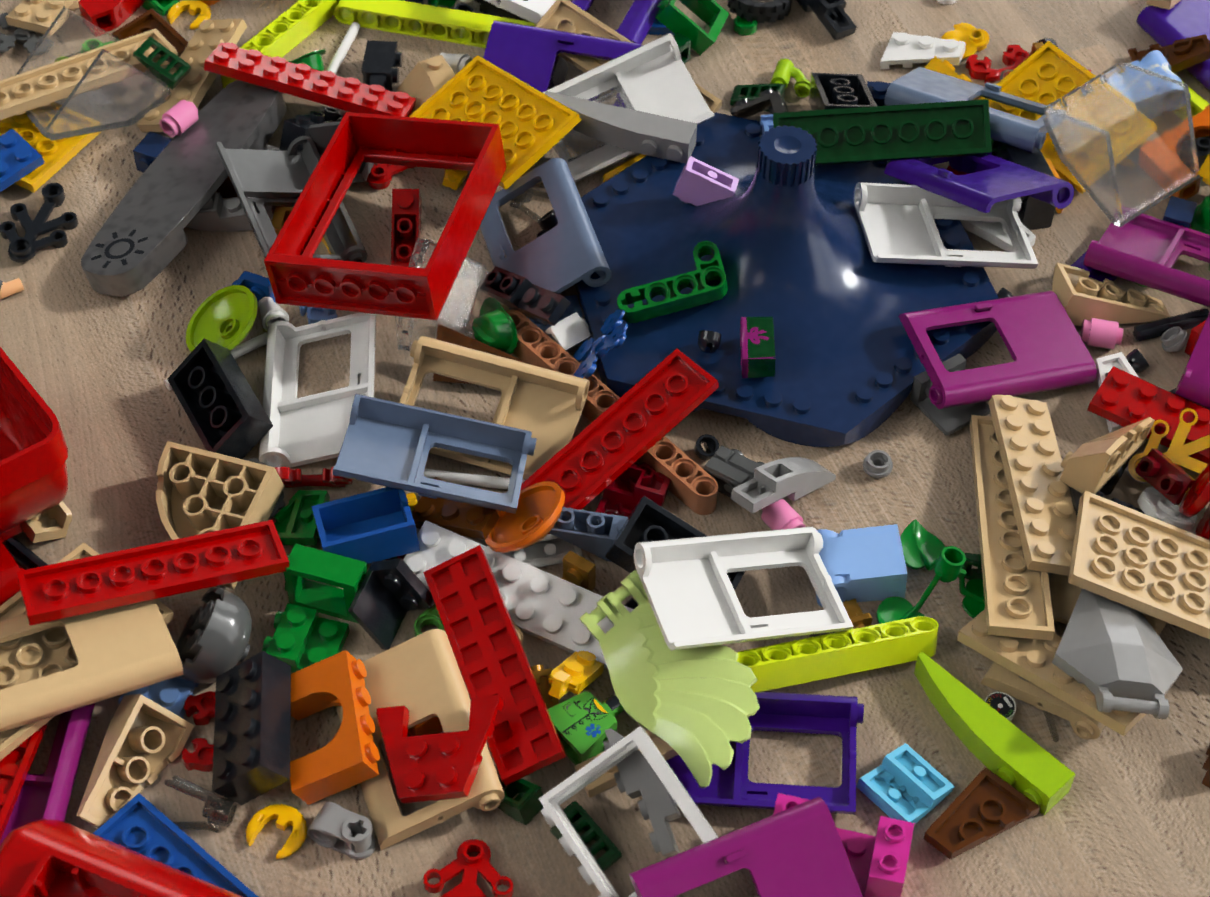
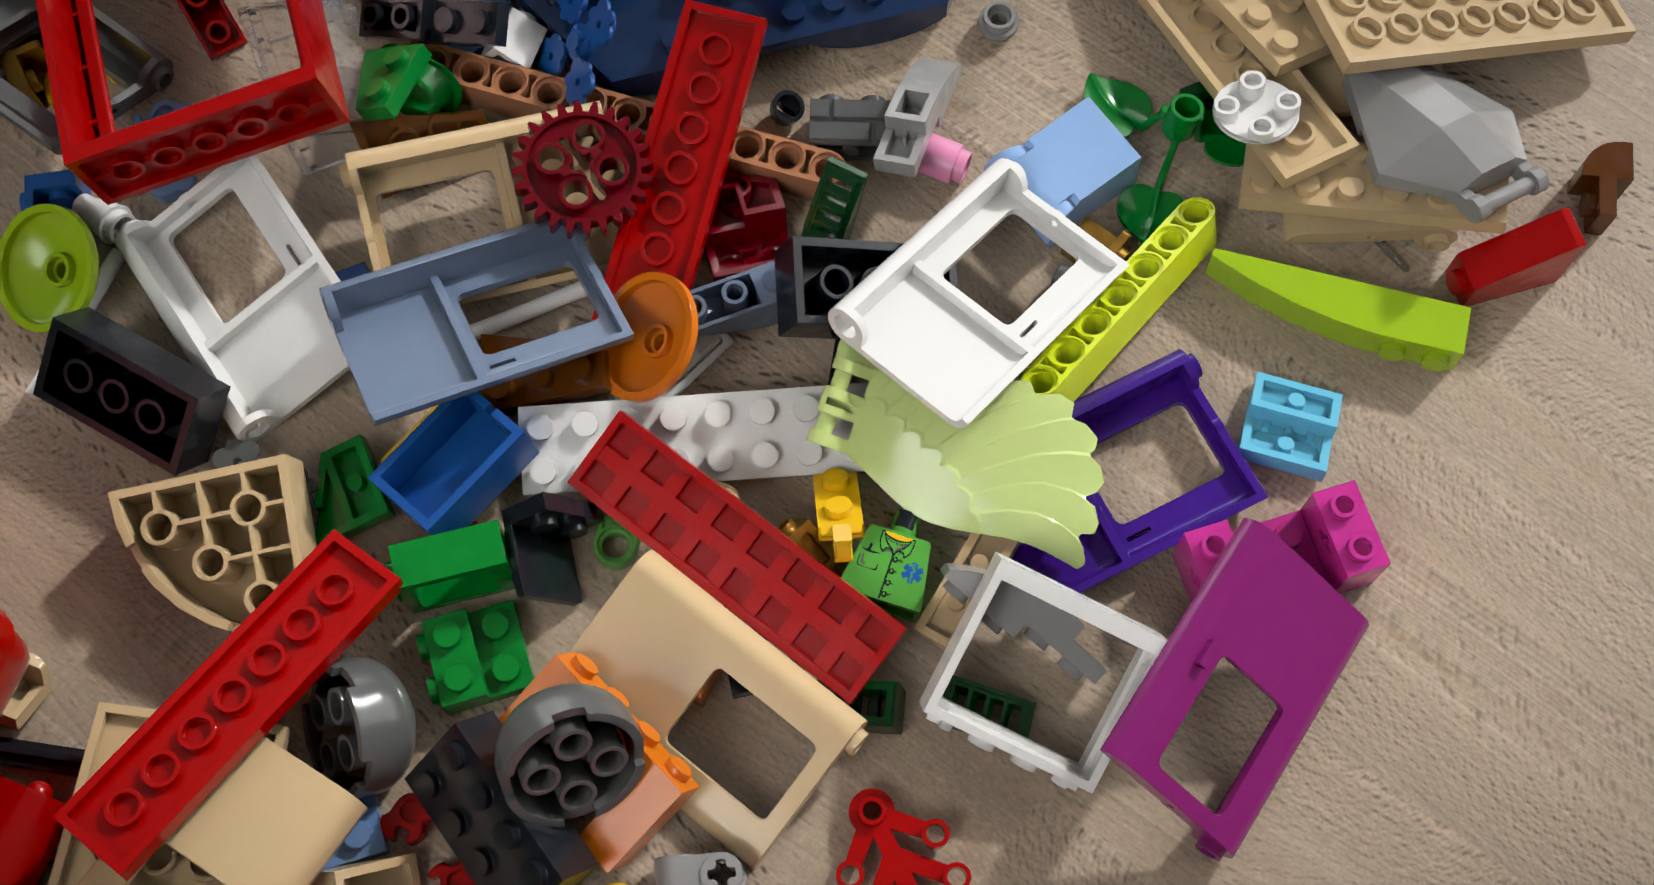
camera: 30 degrees left, 20 degrees up
(295, 478) = (314, 433): red helmet -> none
(309, 698) = (565, 756): none -> dark grey cylinder
(439, 763) = (764, 735): red wing -> none
(476, 312) = (388, 79): none -> green wing
(579, 407) = (550, 188): none -> dark red gear
(579, 571) = (752, 371): pearl gold bracket -> none
(688, 506) = (823, 225): none -> dark green slope
(979, 814) = (1389, 414): reddish brown wing -> none
(997, 577) = (1256, 109): none -> white dish
(1002, 703) = (1327, 260): black tile -> none
(1128, 764) = (1516, 260): none -> red slope

